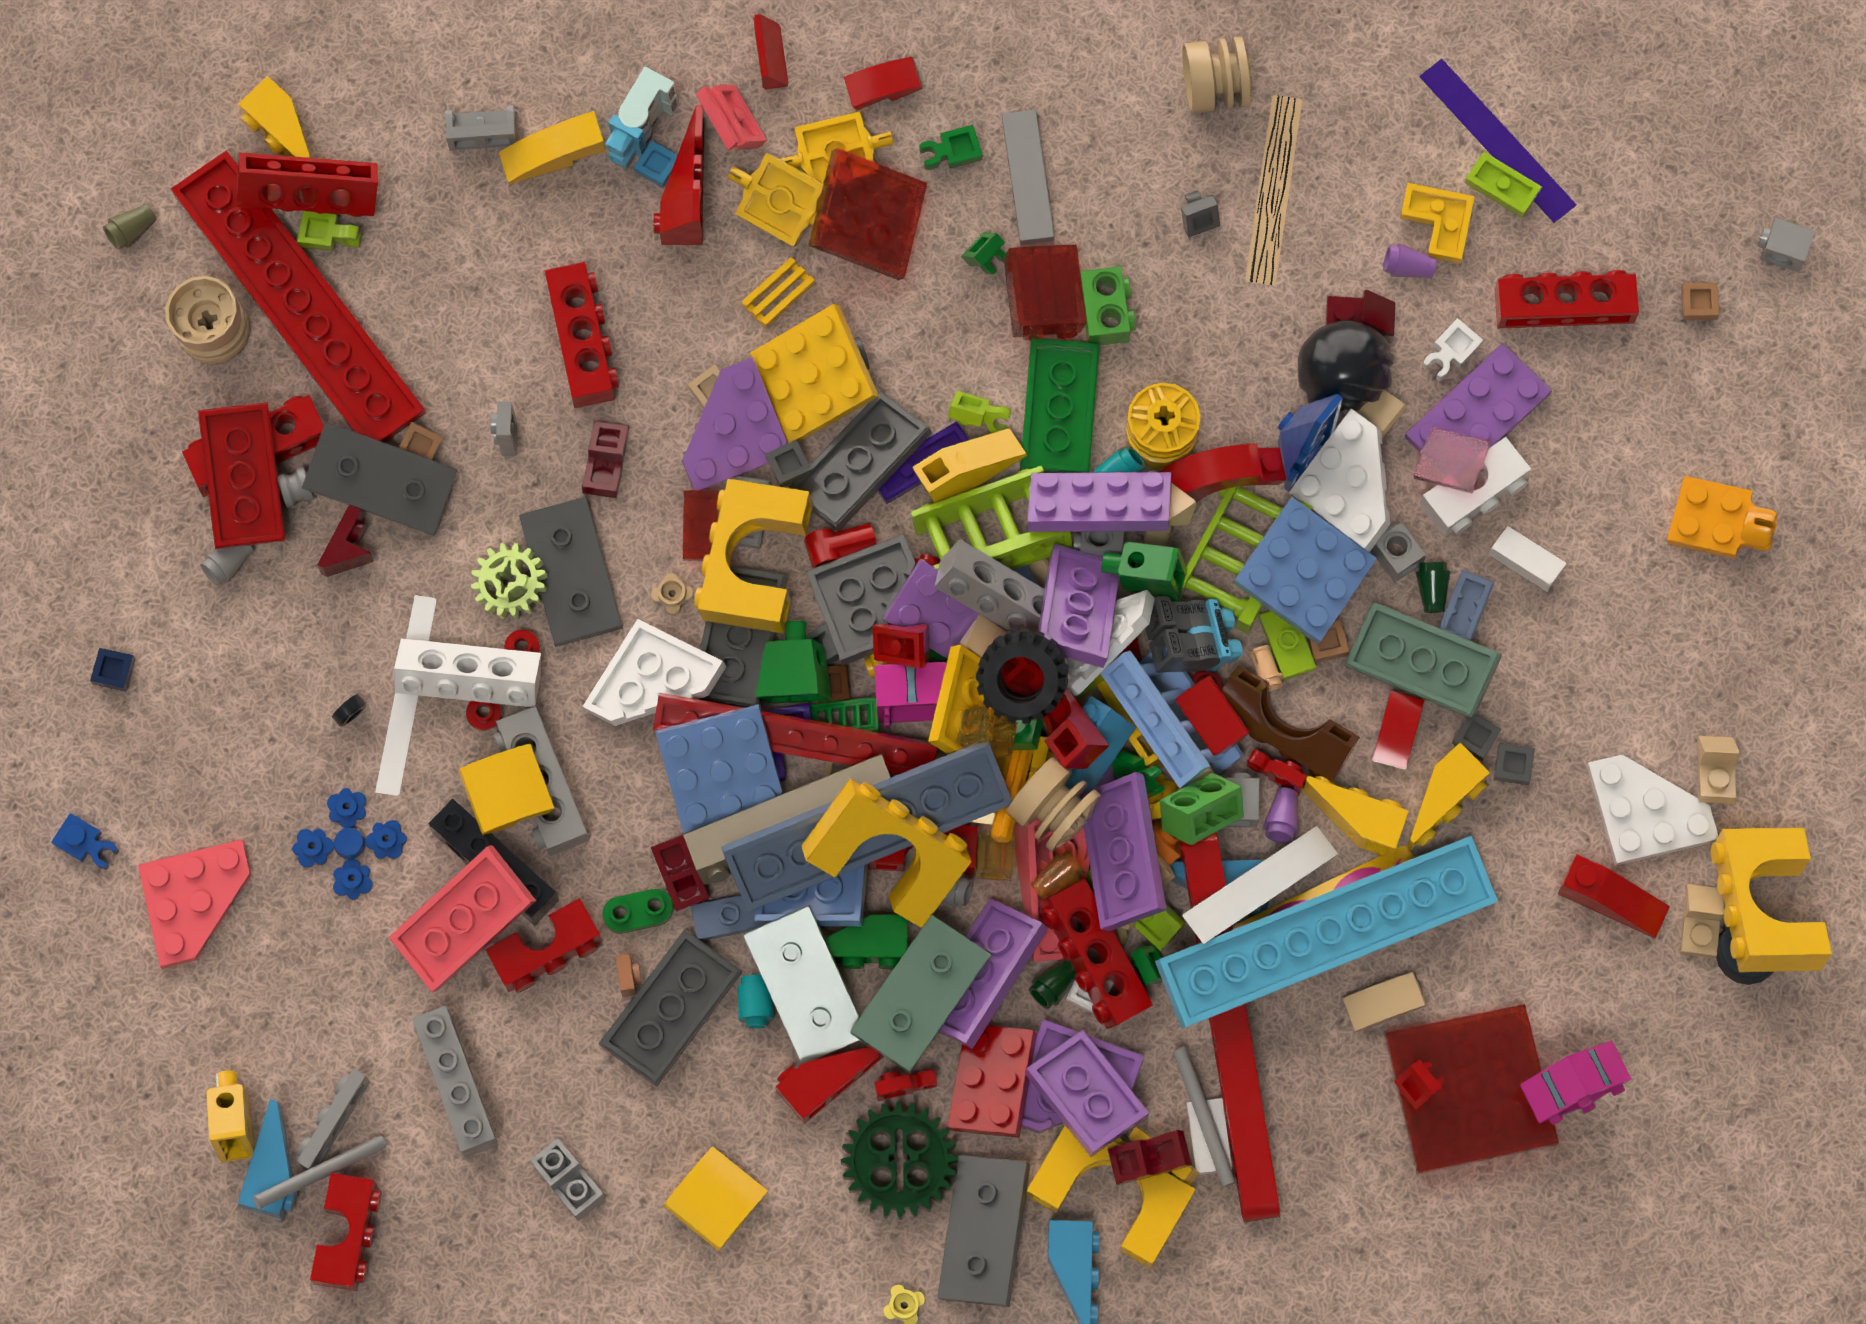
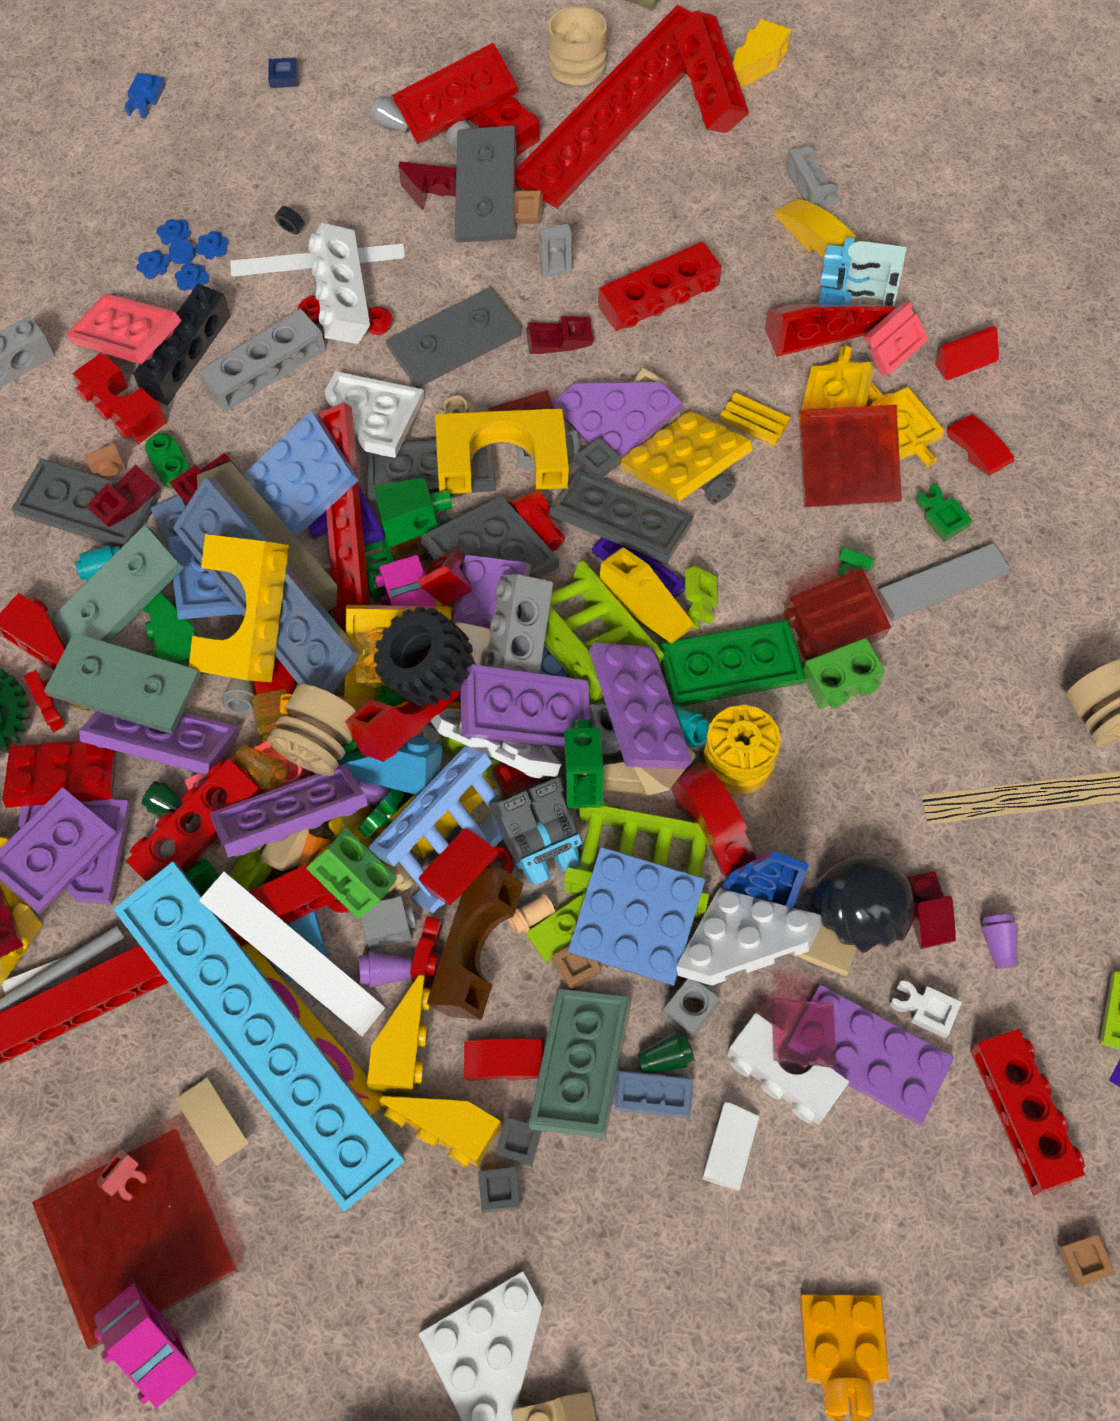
camera: 75 degrees right, 10 degrees down
(191, 897) = (113, 167): coral plate -> none
(323, 230) = (682, 103): lime plate -> none
(495, 577) = (429, 293): yellowish green gear -> none
(506, 789) = (239, 325): yellow slope -> none
(685, 959) = (123, 499): none -> dark red slope
(1199, 214) = (968, 731): dark grey tile -> none
(1448, 214) = (1068, 966): yellow plate -> none
(1613, 896) = (377, 1340): red slope -> none

